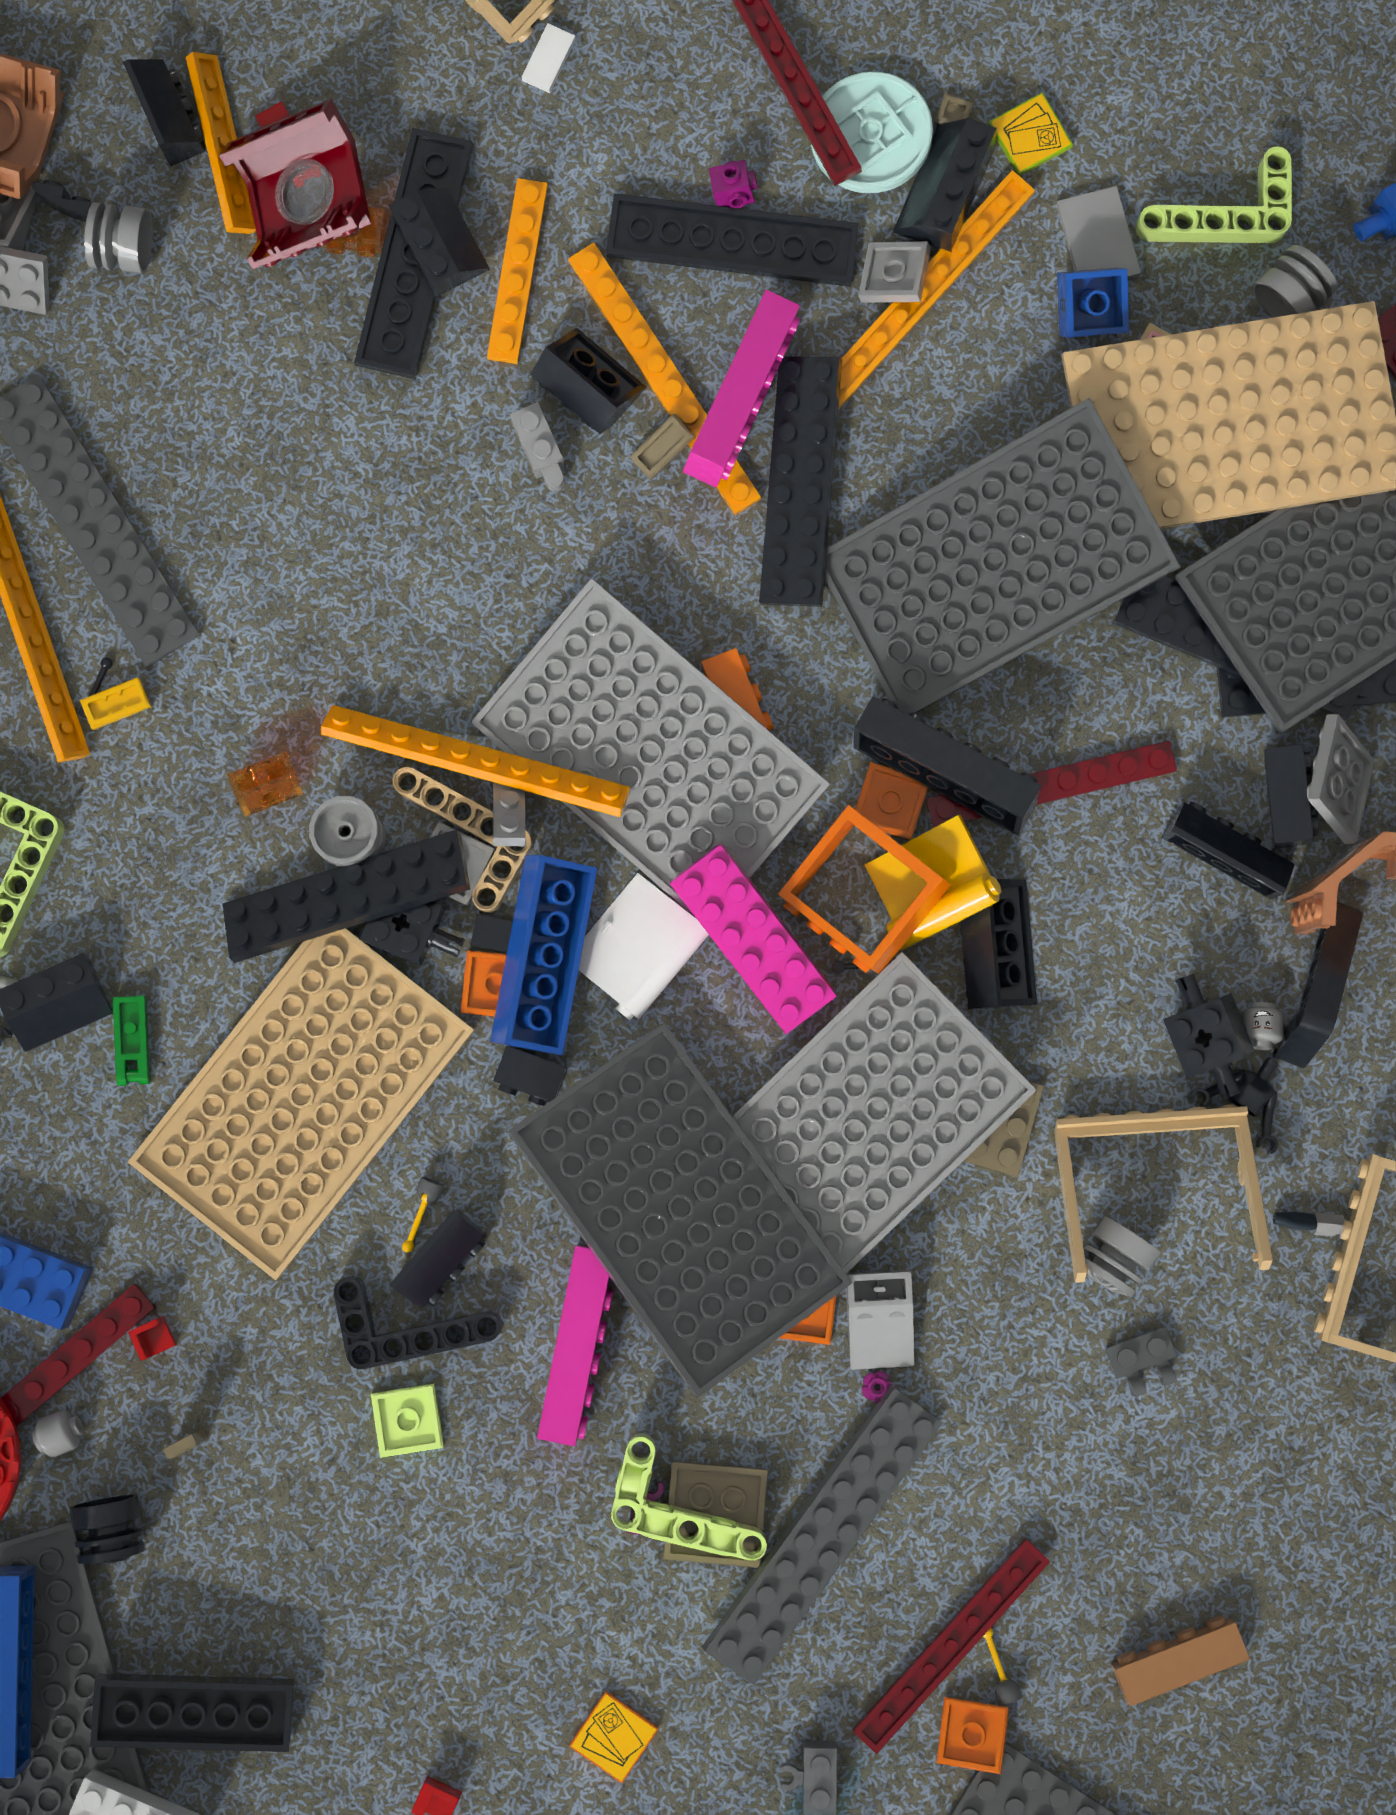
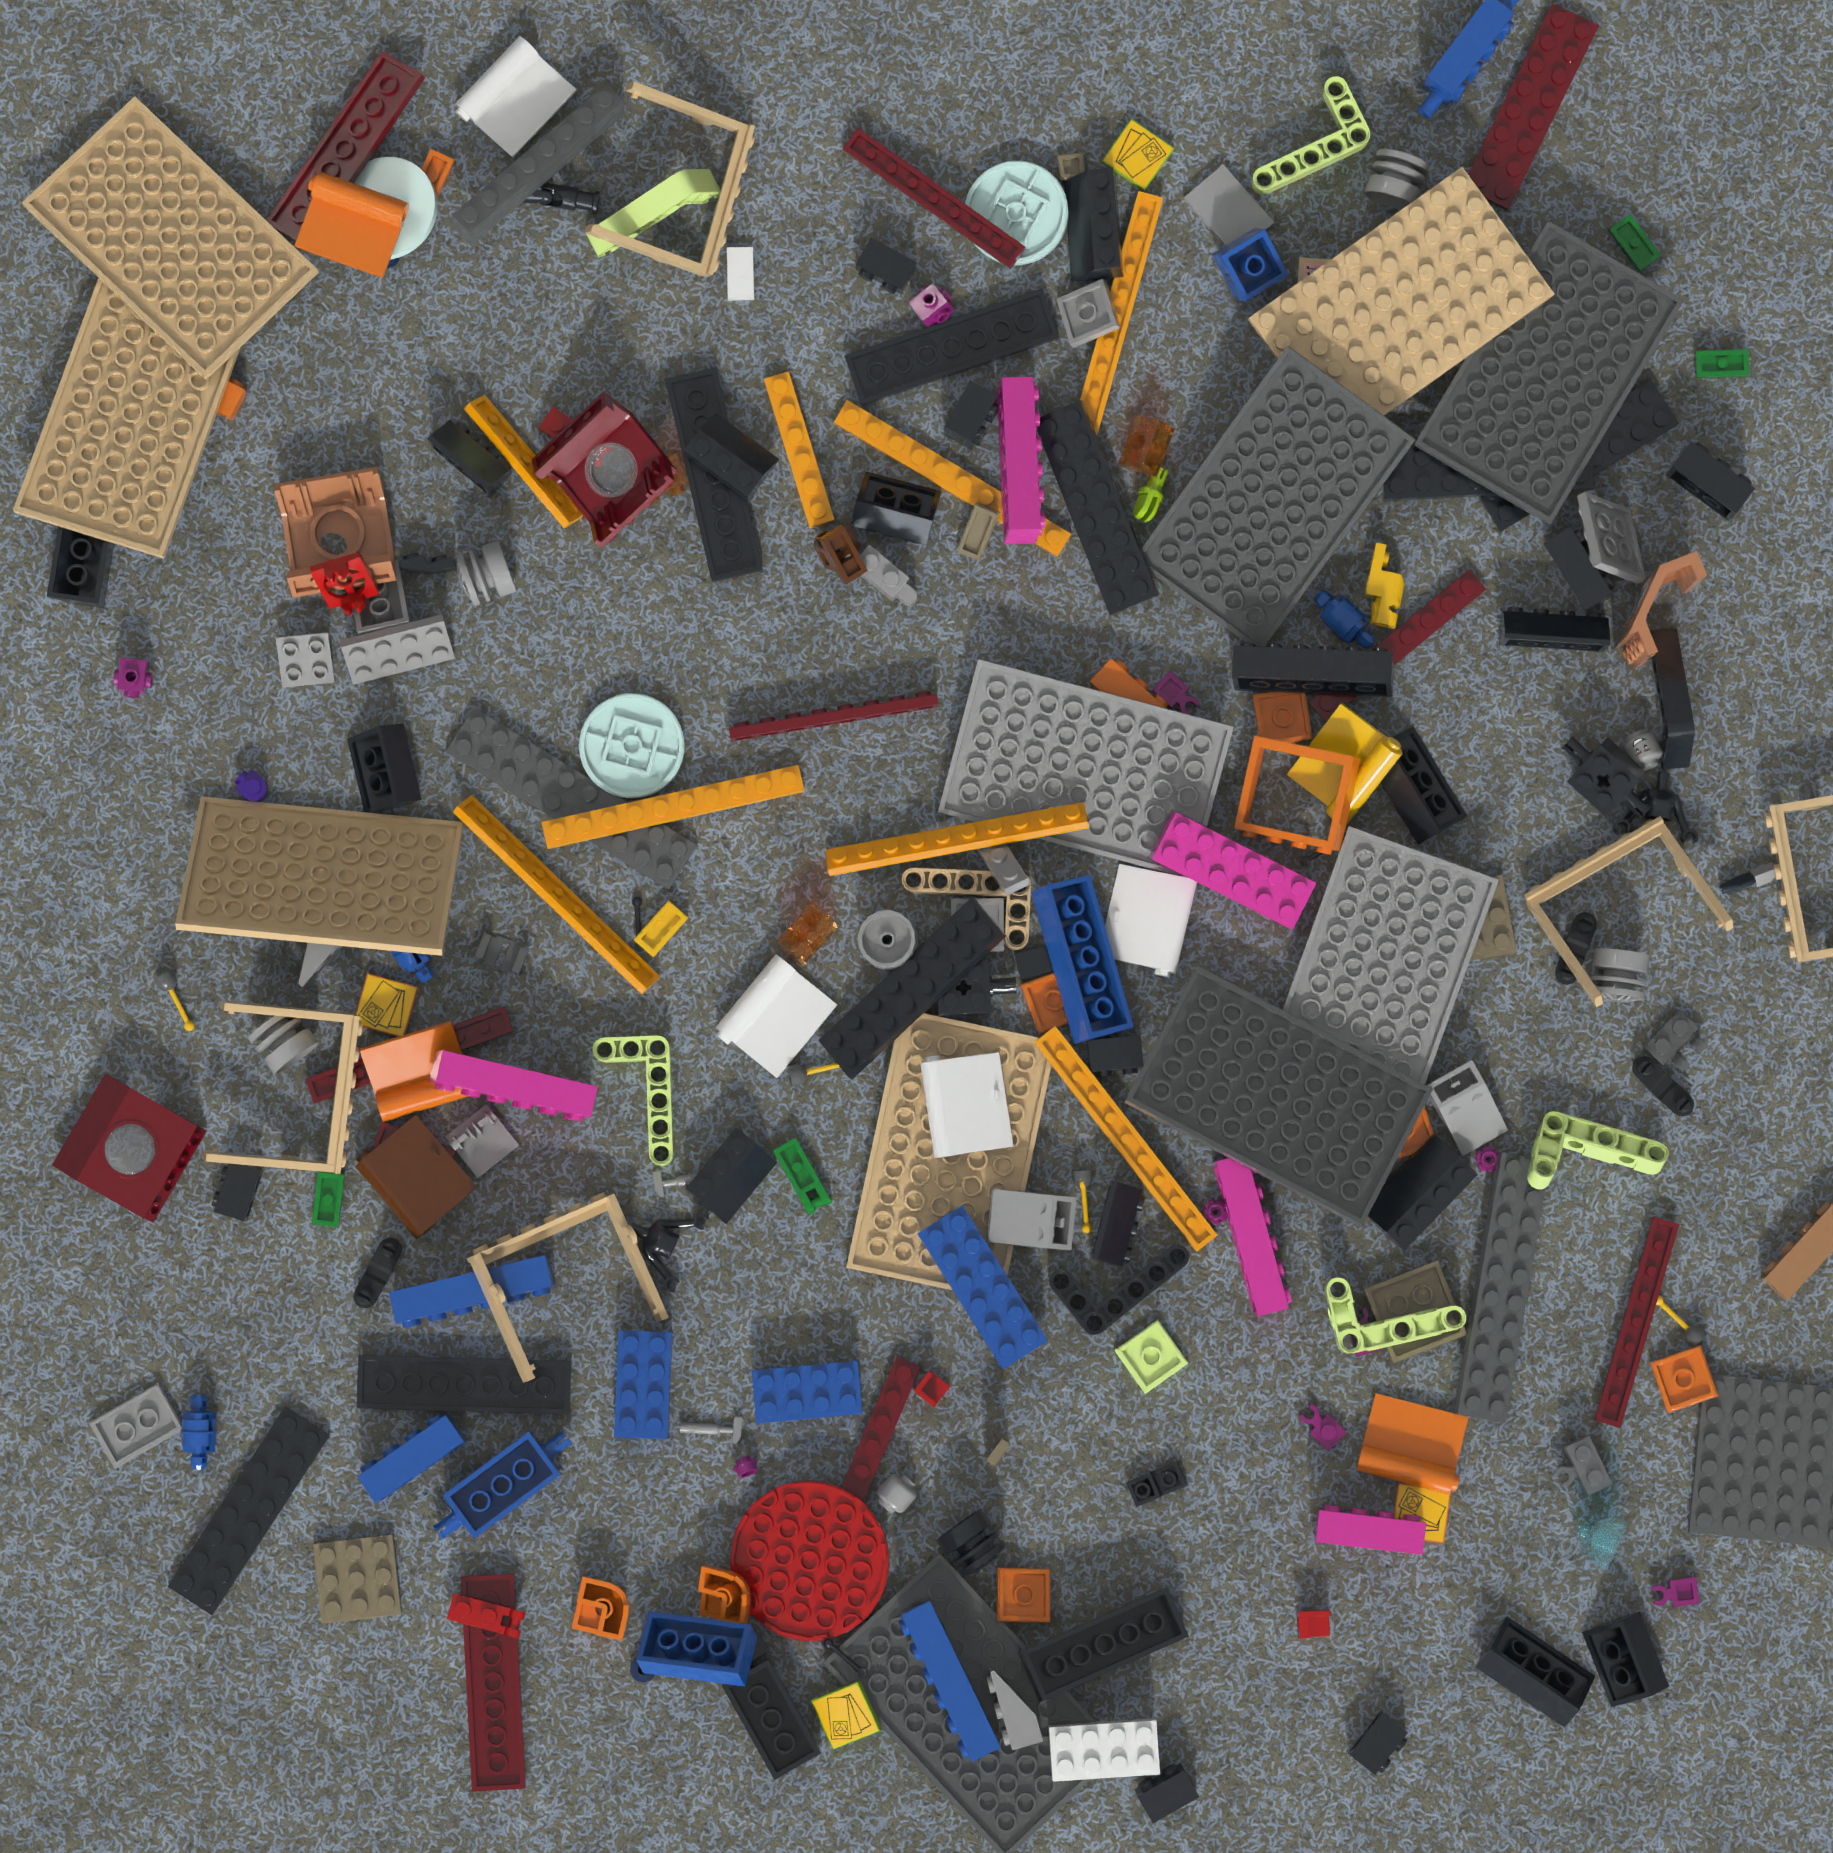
camera: 30 degrees left, 0 degrees up
(56, 1740) = (1019, 1719): none -> light grey slope
(138, 1612) = (1023, 1595): none -> orange tile
(182, 929) = (798, 1074): none -> dark grey hinge
(183, 495) = (631, 745): none -> light aqua plate
(189, 855) = (775, 1016): none -> white door
(191, 579) = (672, 806): none -> light orange plate
(258, 1257) = (982, 1287): none -> blue brick
(341, 1050) = (966, 1104): none -> white door
(344, 1561) = (1157, 1483): none -> black slope
(348, 1208) = (1031, 1219): none -> light grey slope
(398, 563) = (844, 714): none -> dark red plate
(495, 1171) = (1125, 1138): none -> light orange plate
(501, 394) = (833, 549): none -> reddish brown tile
(545, 1294) = (1208, 1213): none -> magenta plate
(545, 1733) = (1370, 1531): none -> dark pink brick
(556, 1593) = (1325, 1429): none -> magenta plate
(641, 1658) = (1412, 1444): none -> orange door
(703, 121) = (885, 267): none -> black brick
(715, 319) = (970, 416): none -> black brick
(785, 1387) = (1420, 1191): none -> black slope
(787, 717) = (1173, 692): none -> magenta plate
(865, 496) = (1150, 497): none -> lime arm
(886, 441) = (1146, 446): none -> clear orange brick
(992, 1415) = (1584, 1137): none -> yellowish green beam
(1008, 728) = (1344, 619): none -> blue piece
(1067, 717) = (1384, 588): none -> yellow plate
(1090, 1200) = (1578, 941): none -> black piece
(1106, 1401) = (1663, 1086): none -> black piece

